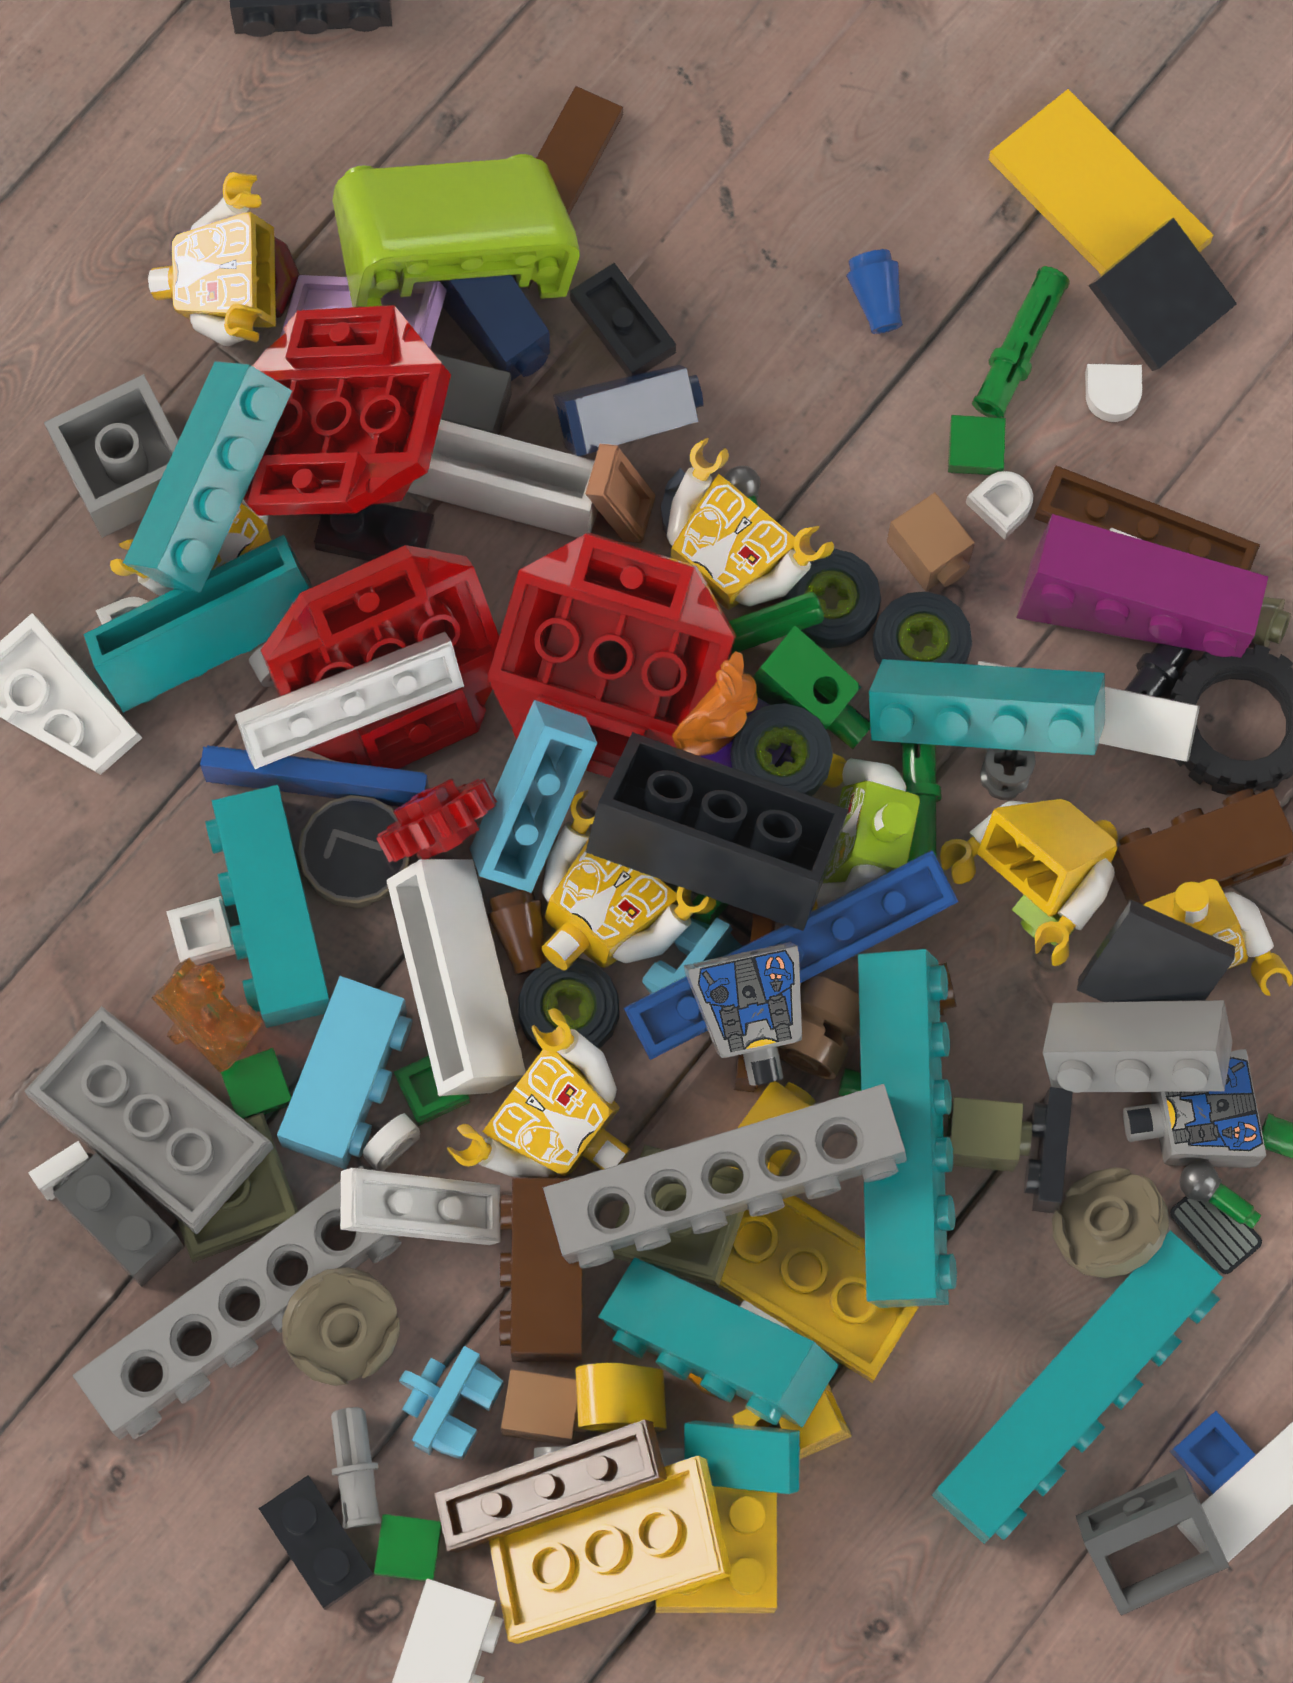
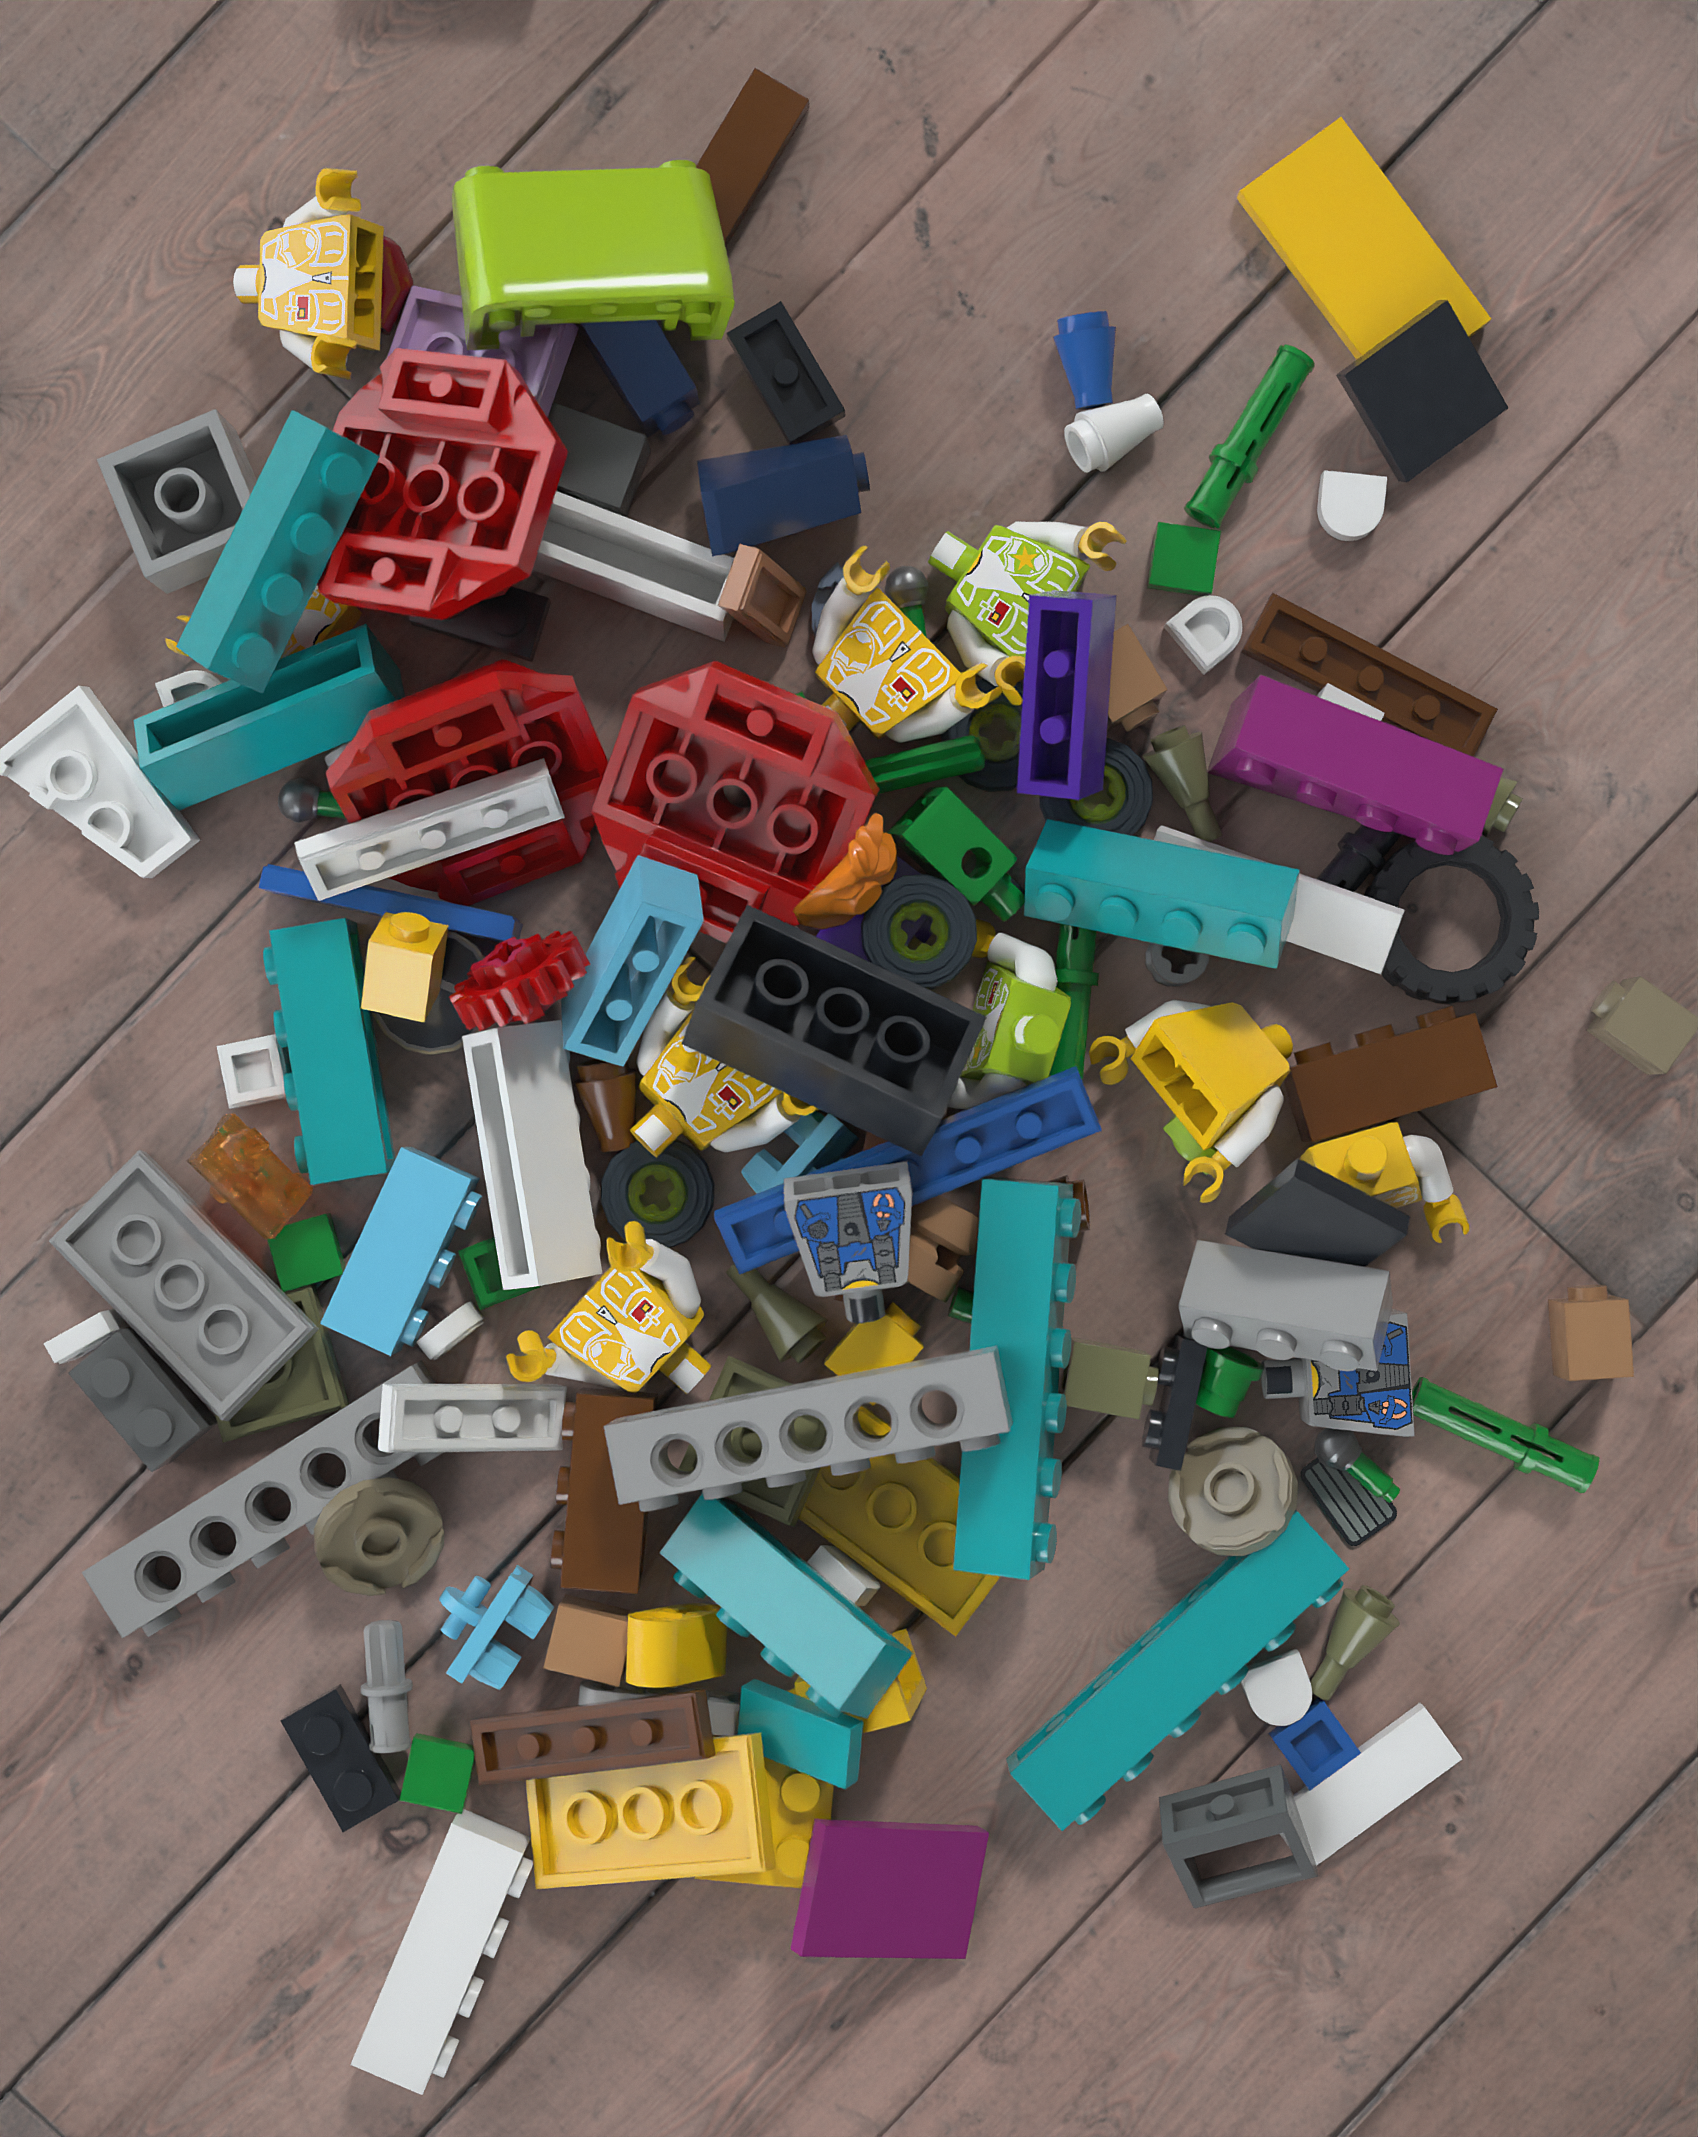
camera: 10 degrees right, 15 degrees up
(232, 698) = (303, 801): none -> flat silver piece
(333, 817) = (404, 966): none -> yellow brick
(692, 1108) = (787, 1322): none -> olive cone
(837, 1607) = (889, 1890): none -> magenta tile
(838, 474) = (995, 584): none -> torso
(888, 544) = (1066, 694): none -> dark purple brick
(901, 347) = (1109, 432): none -> white cone
(994, 612) = (1182, 769): none -> olive cone
(1092, 1128) = (1226, 1380): none -> green piece
(1172, 1405) = (1278, 1688): none -> white tile
(1238, 1342) = (1359, 1626): none -> olive cone

